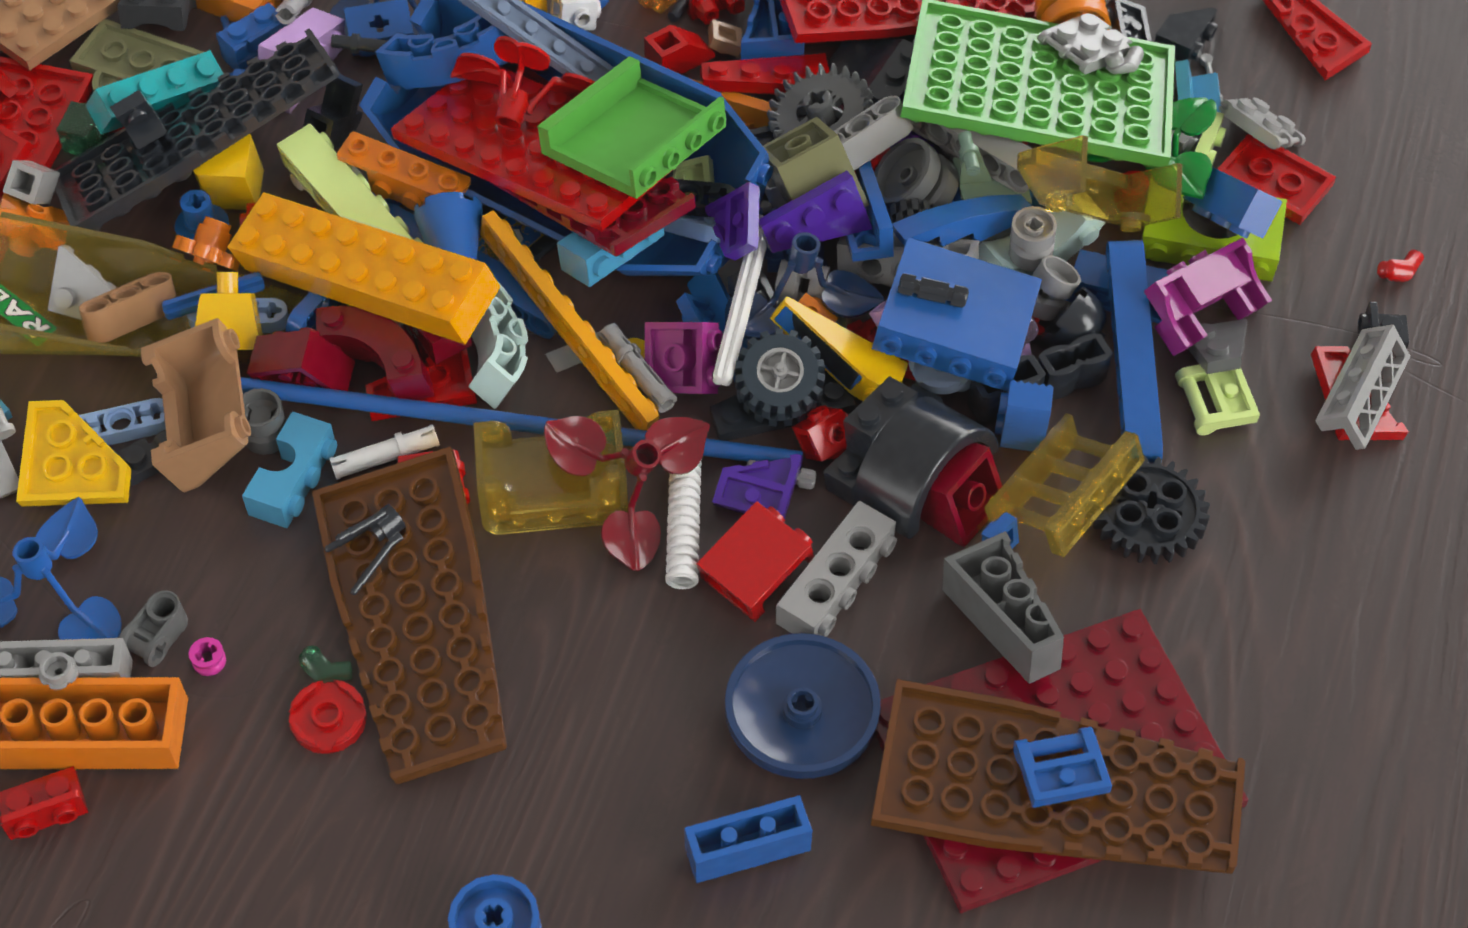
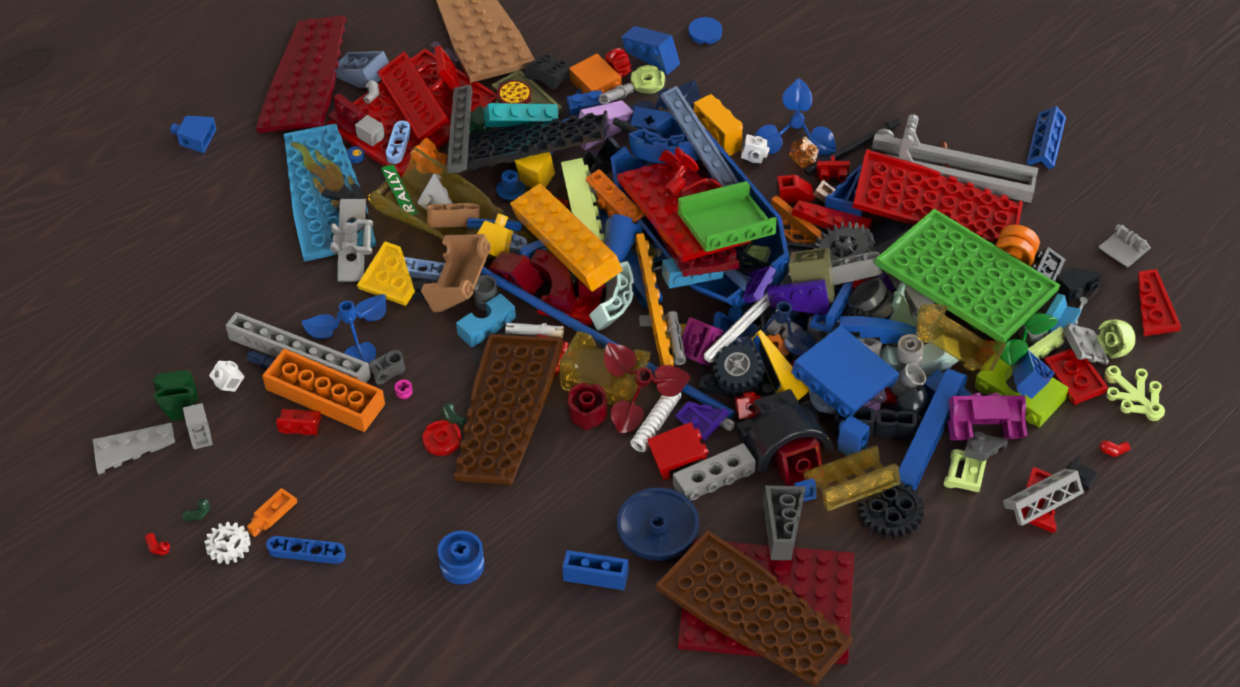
camera: 30 degrees right, 5 degrees down
(31, 182) = (438, 138): light grey brick -> none
(53, 663) = (332, 364): light grey plate -> none
(63, 154) = (459, 129): none -> dark grey plate
(119, 59) = (514, 92): none -> tile
(139, 119) = (503, 124): black slope -> none
(209, 244) = (504, 199): orange plant -> none
(383, 525) = (510, 361): black plant -> none
(557, 546) = (587, 405): none -> dark red brick
(933, 290) = (833, 354): black axle -> none
(1063, 777) = (758, 605): blue plate -> none
(1085, 41) = (1008, 263): light grey plate -> none
(1119, 65) = (1013, 281): light grey arm -> none
(1300, 95) = (1116, 338): none -> yellowish green cylinder
(1409, 183) = (1113, 375): none -> yellowish green plant

